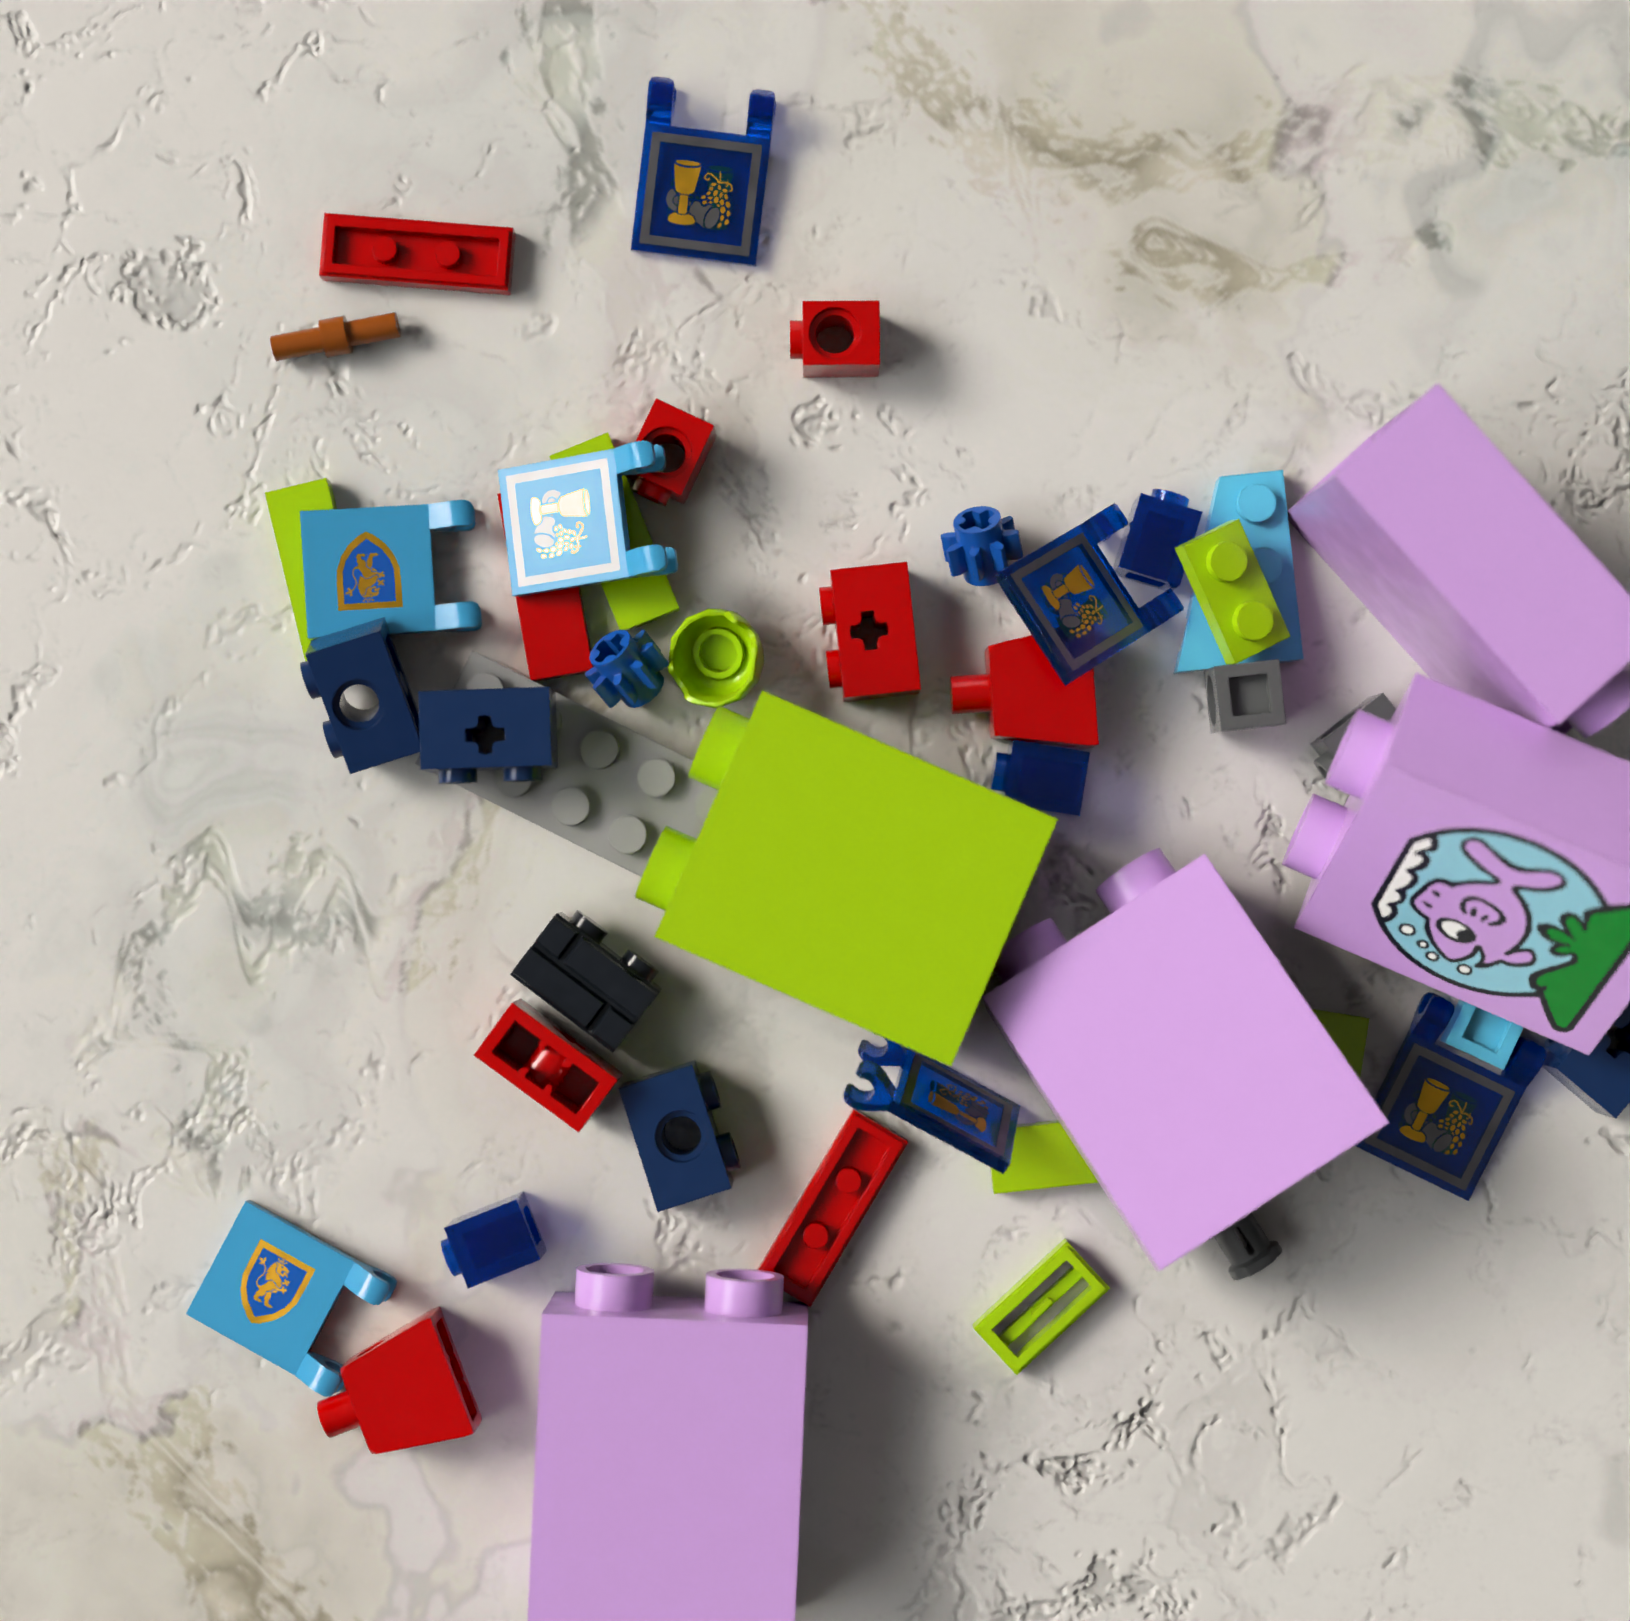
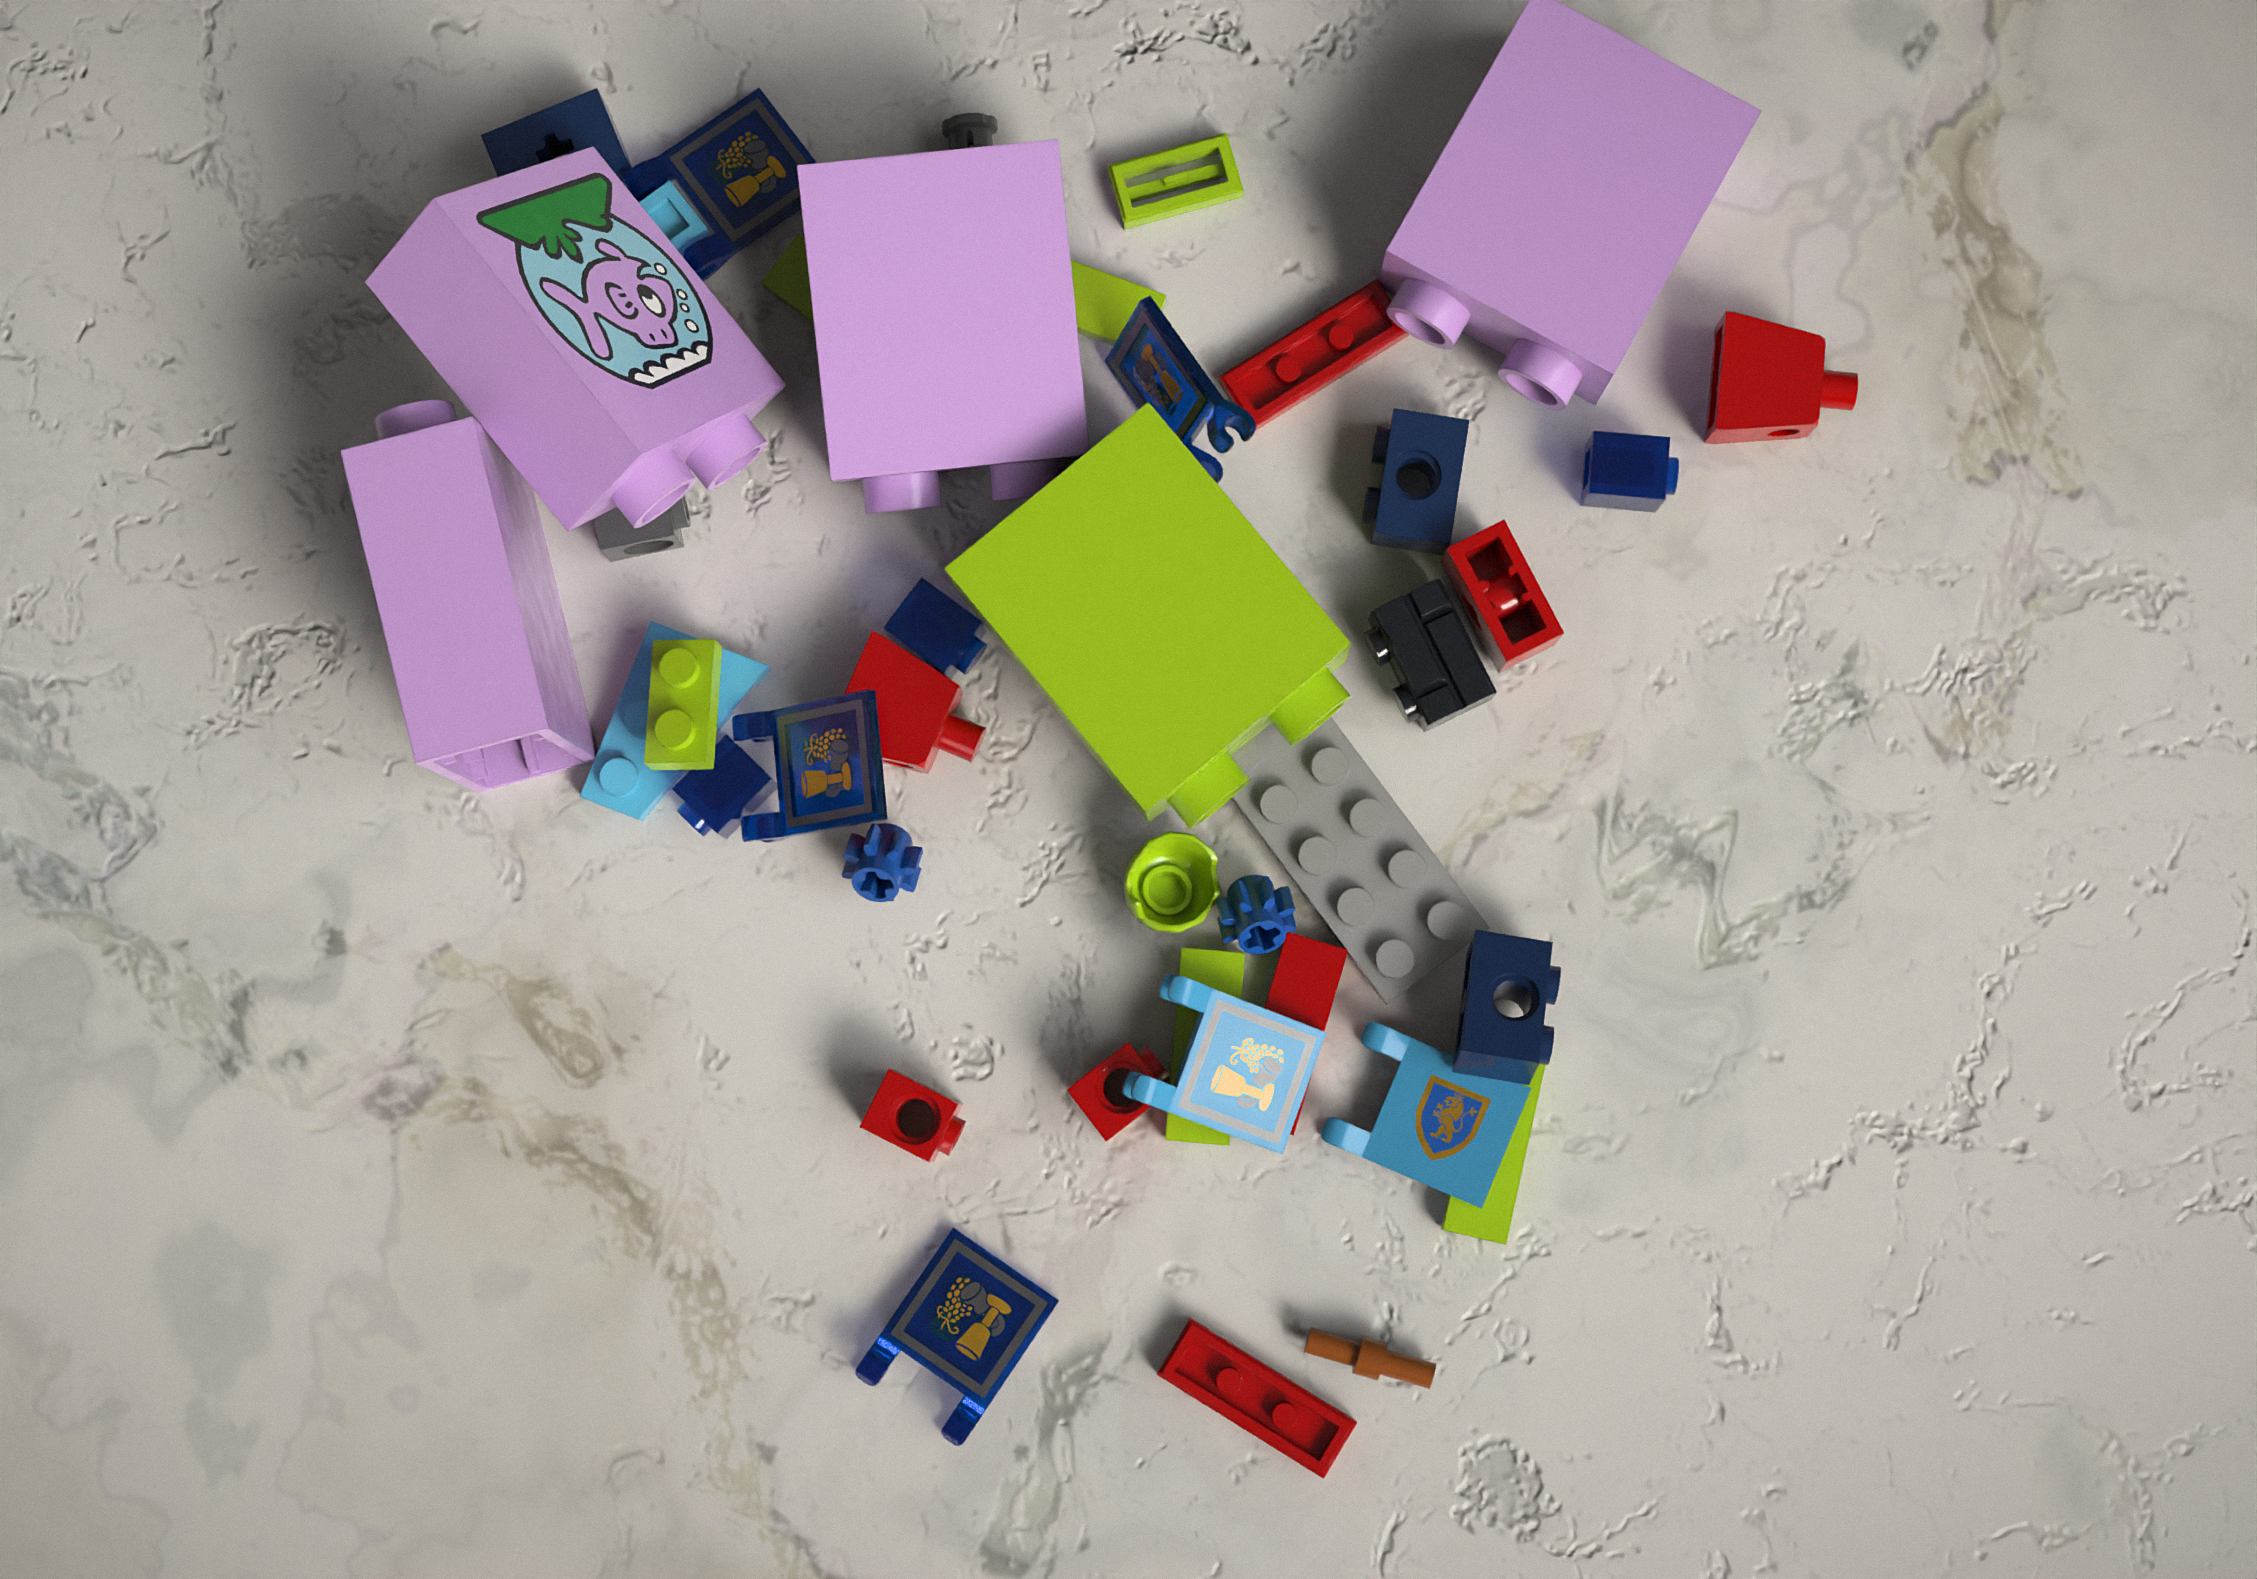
camera: 145 degrees left, 5 degrees down
(277, 1290) = (1841, 527): dark azure flag -> none
(453, 717) = (1429, 944): dark blue brick -> none
(886, 597) = (1019, 797): red brick -> none
(1244, 696) = (721, 608): dark grey brick -> none

